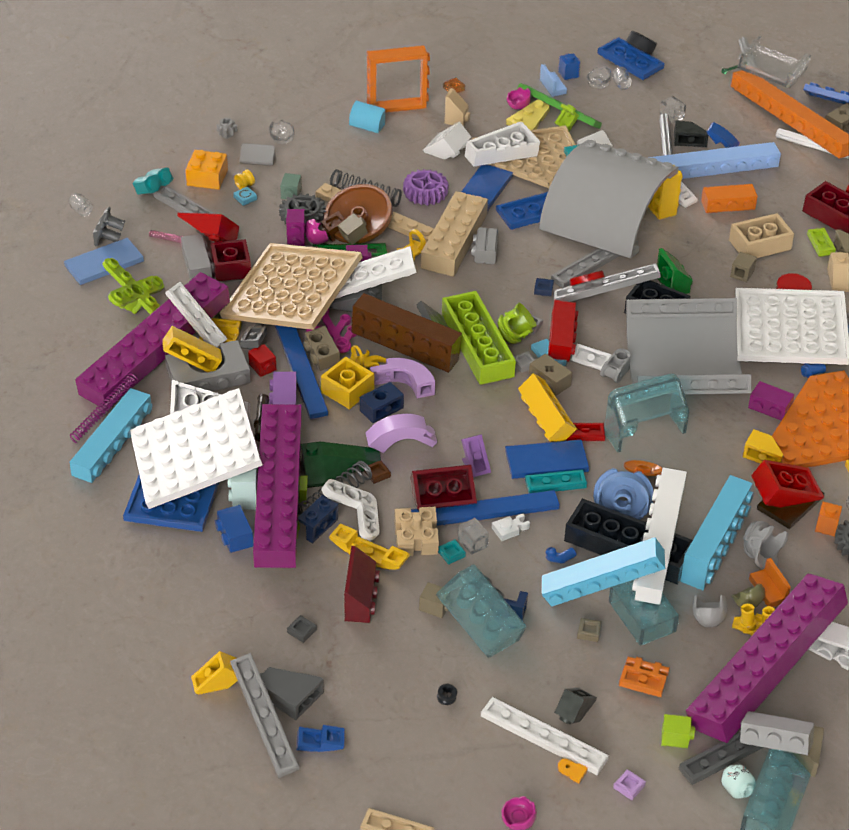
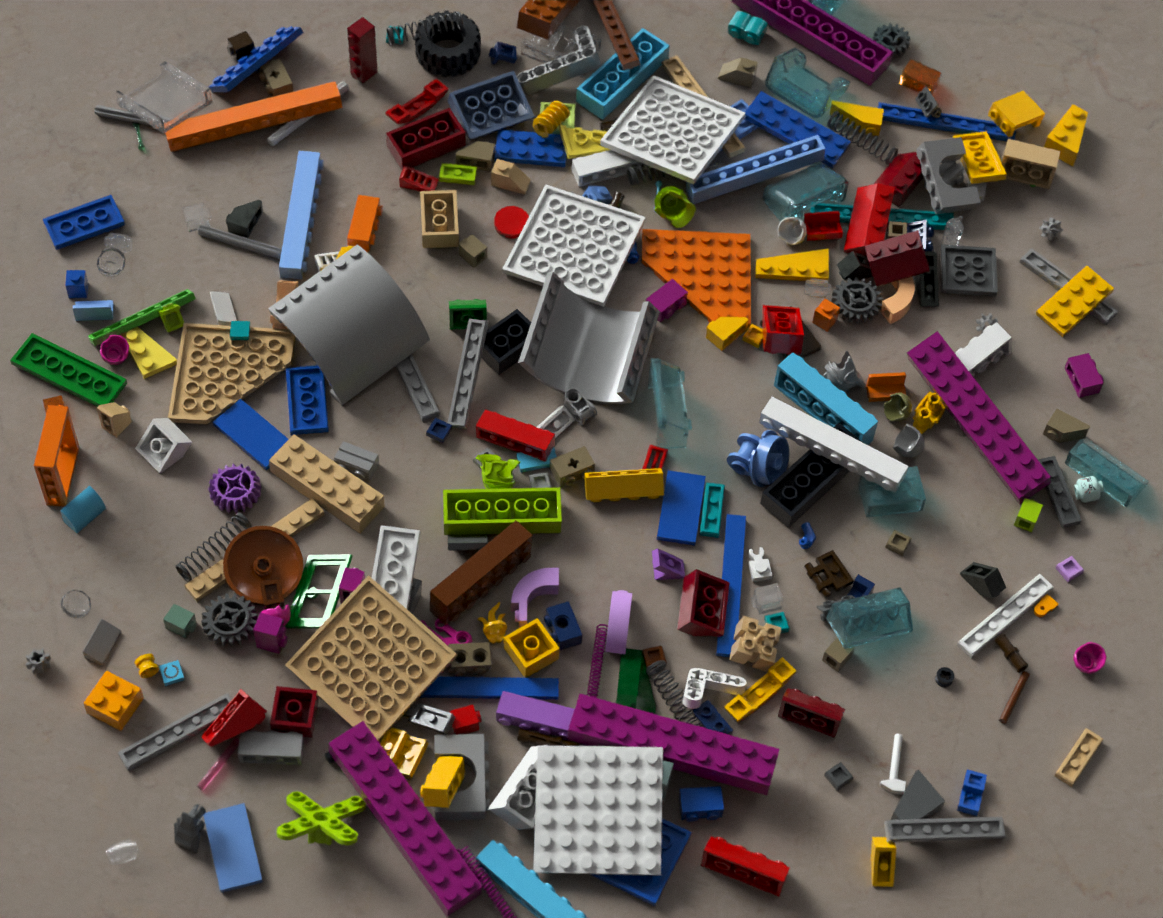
camera: 75 degrees left, 15 degrees up
(153, 181) = (114, 762): teal brick -> none
(178, 568) = (744, 865): none -> red slope
(195, 315) = (400, 763): white tile -> none
(332, 670) = (894, 785): none -> white piece
(346, 432) = (597, 680): none -> magenta piece
(353, 229) = (293, 576): dark tan brick -> none
(416, 246) = (331, 530): yellow piece -> none
(448, 759) = (1014, 697): none -> reddish brown bar
(488, 83) = (68, 371): none -> green plate
(497, 745) = (1011, 653): none -> dark brown pin
(503, 145) = (209, 387): white wedge -> none
(528, 581) = (833, 569): none -> dark brown plate
(588, 277) = (448, 387): red tile -> none
(603, 572) = (868, 503): brick -> none
(639, 679) = (967, 521): orange plate -> none
(641, 42) = (68, 201): black tyre -> none
(647, 468) = (723, 432): orange dish -> none
(720, 134) = (266, 190): blue slope -> none
(777, 733) = (1064, 441): light grey brick -> none
(797, 219) = (420, 176): none -> red slope

